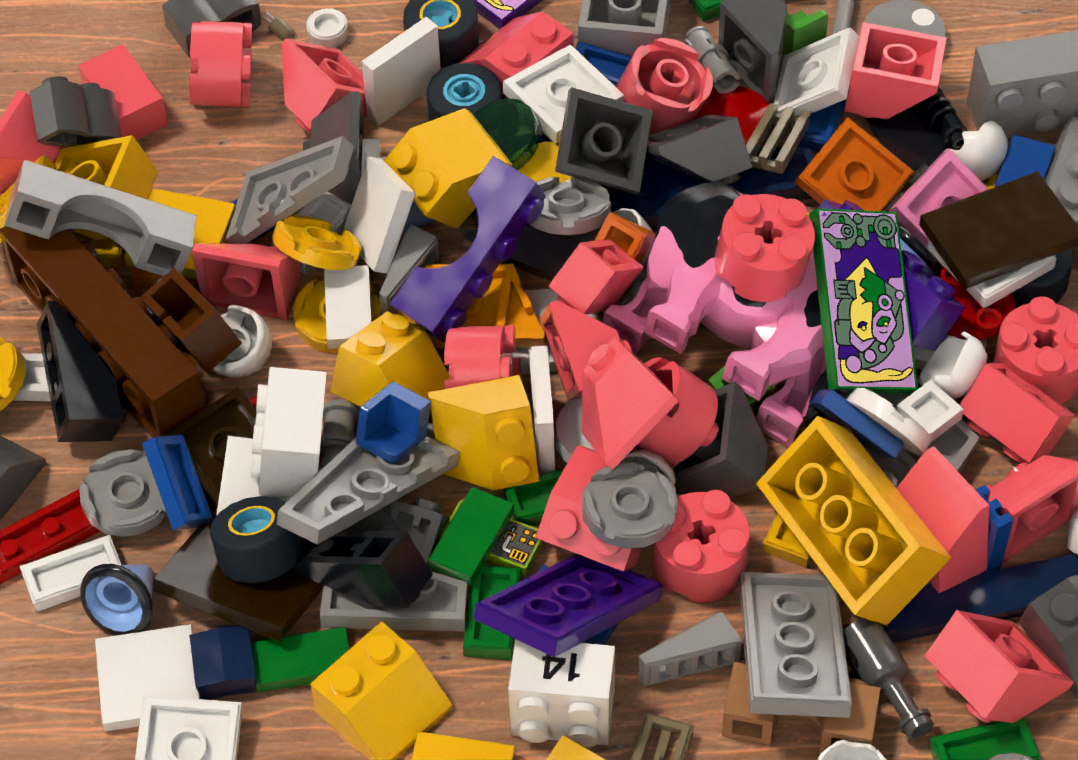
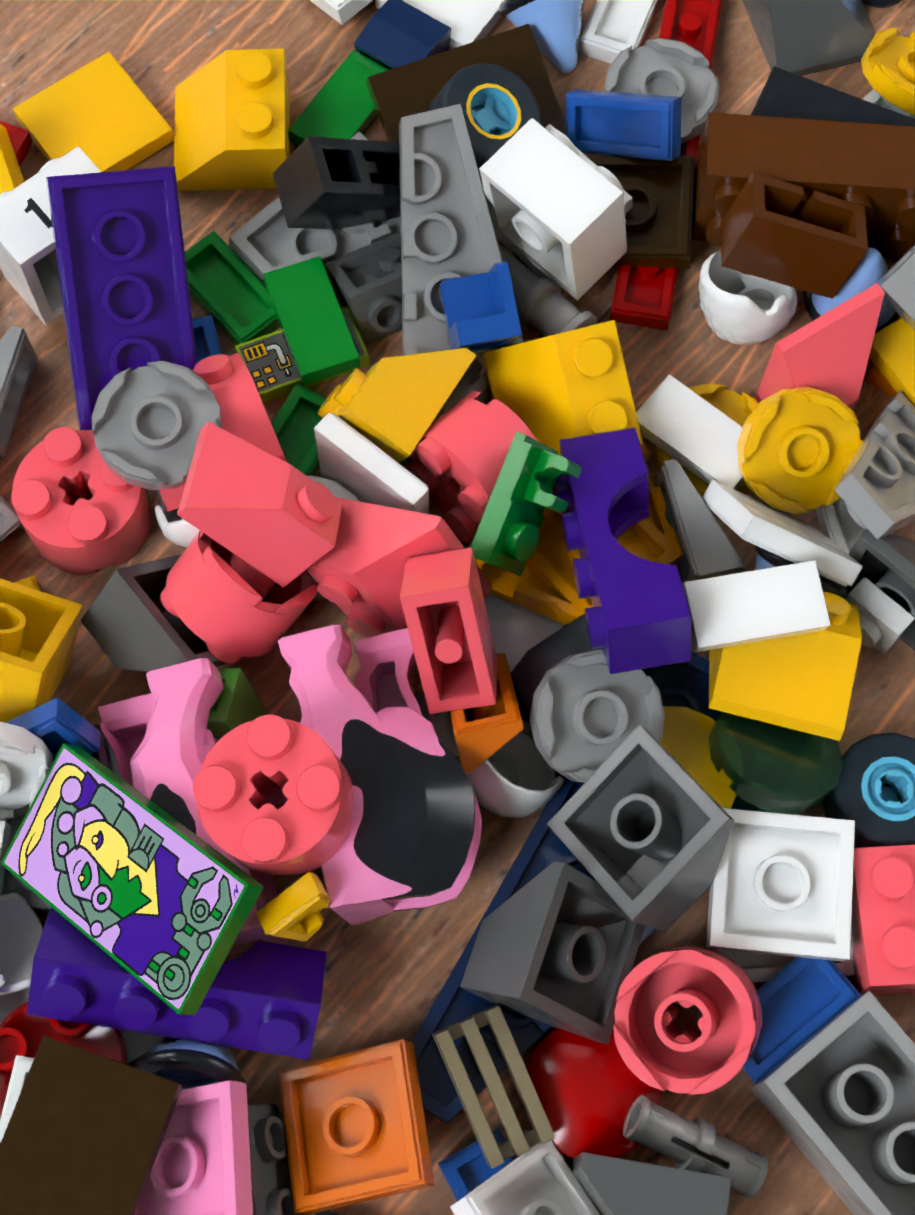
camera: 130 degrees right, 15 degrees up
(440, 166) = (756, 606): none -> white tile
(510, 306) = (516, 506): none -> green plate

